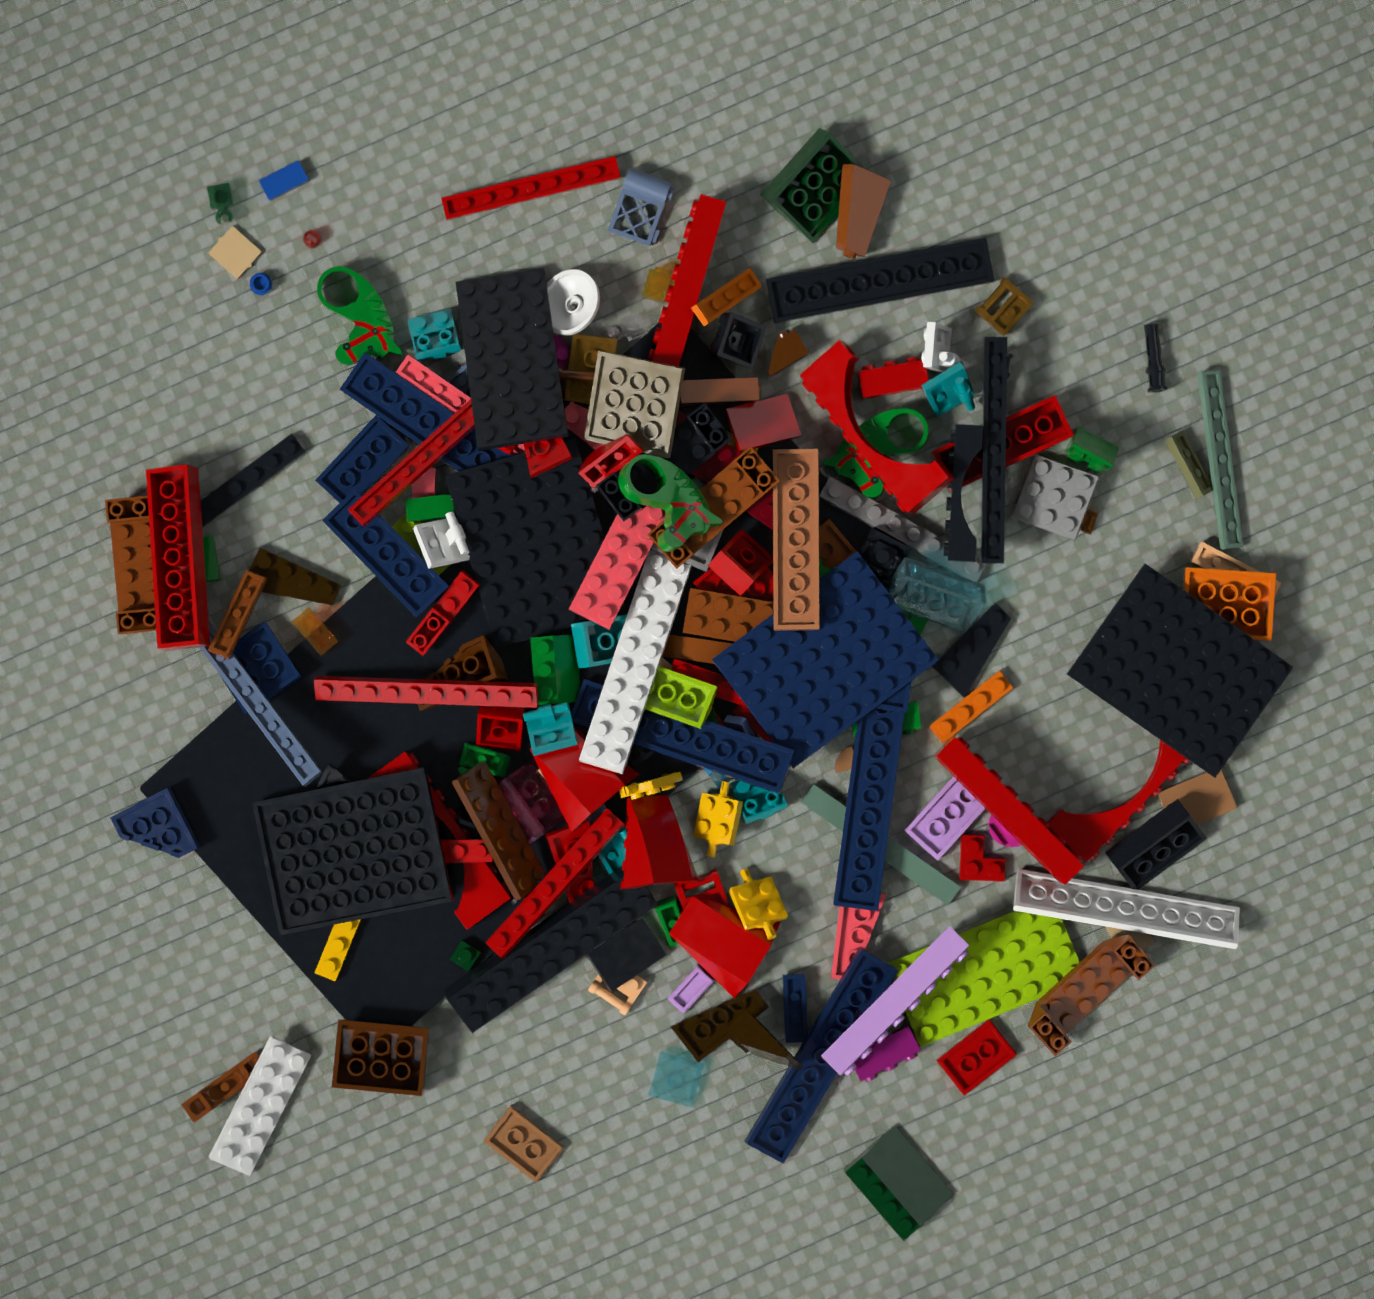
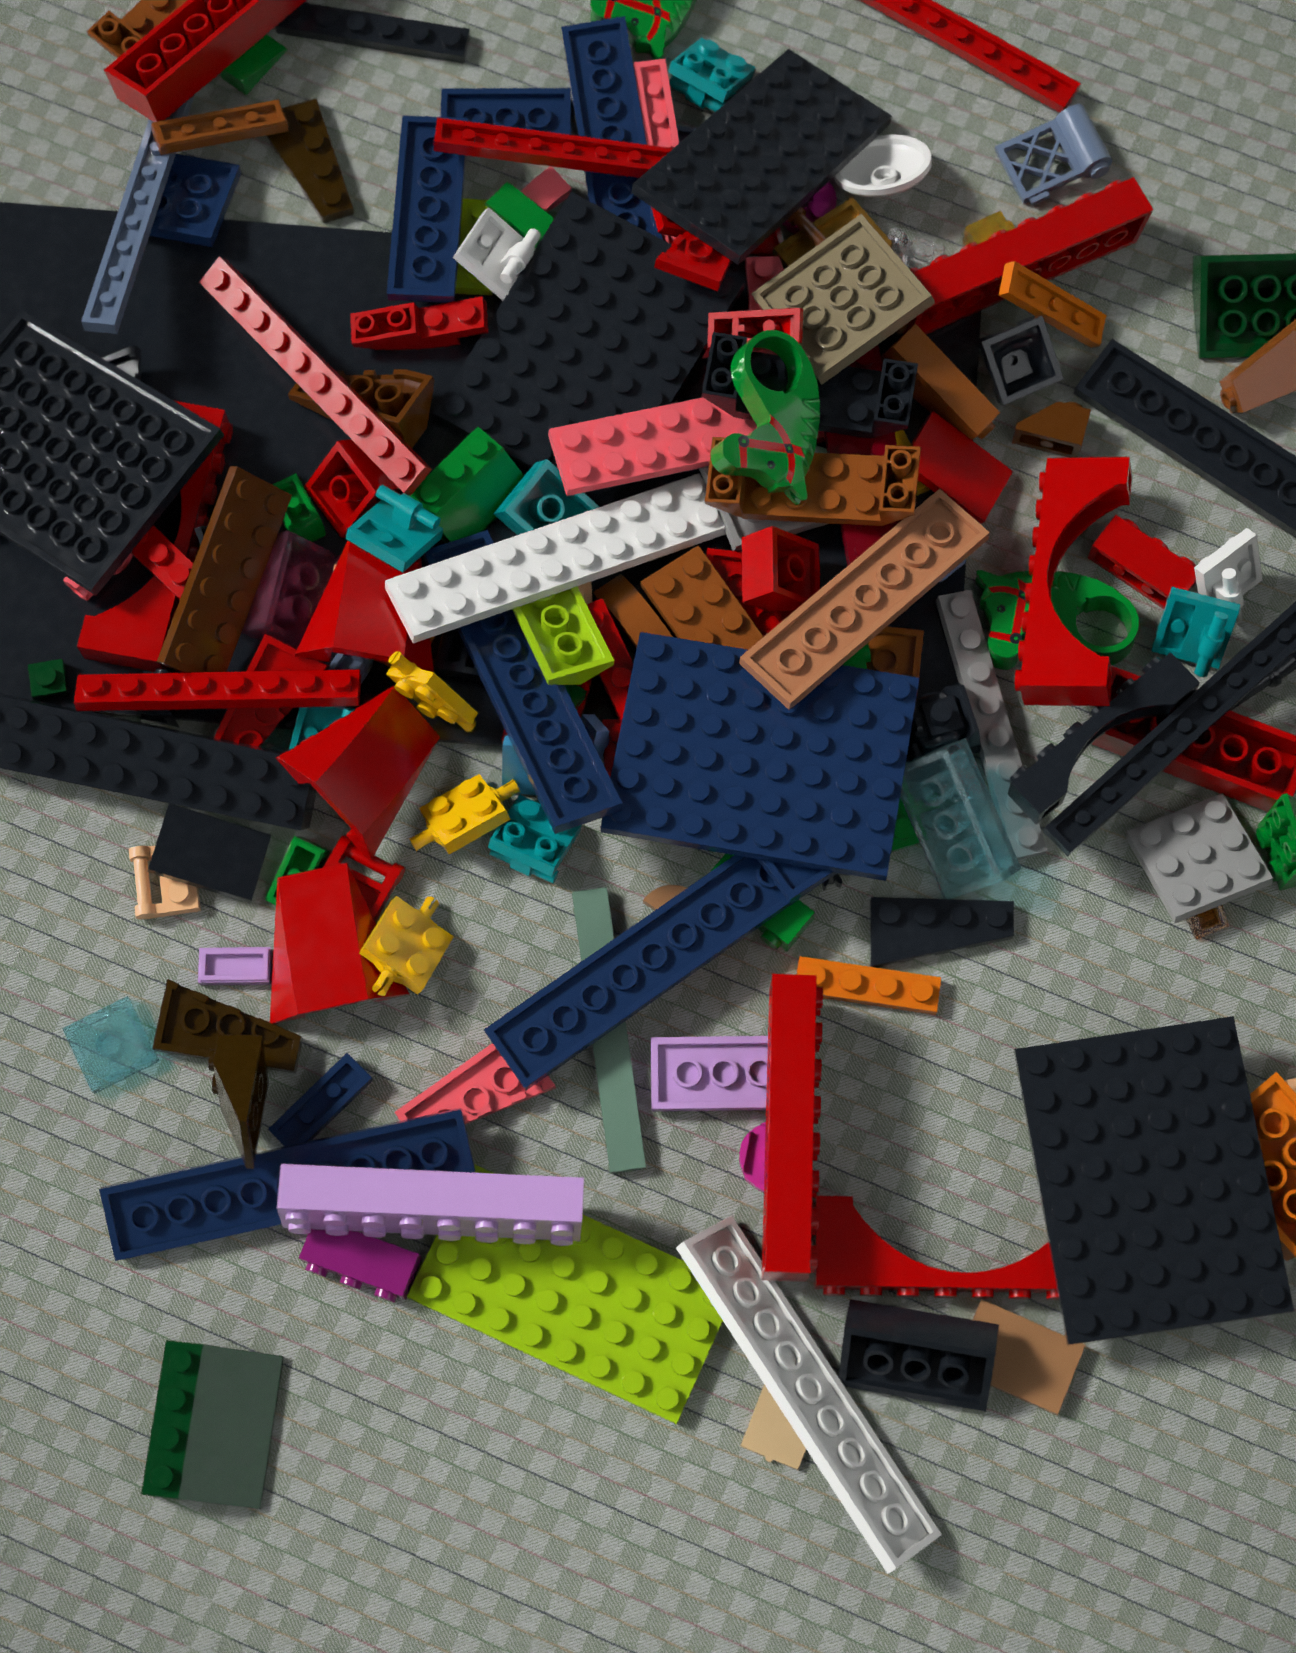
camera: 50 degrees right, 15 degrees down
(315, 631) = (275, 219): clear orange plate -> none
(973, 864) = (686, 1161): red plate -> none
(976, 1057) = (457, 1379): red tile -> none
(1085, 989) = (662, 1433): dark orange slope -> none

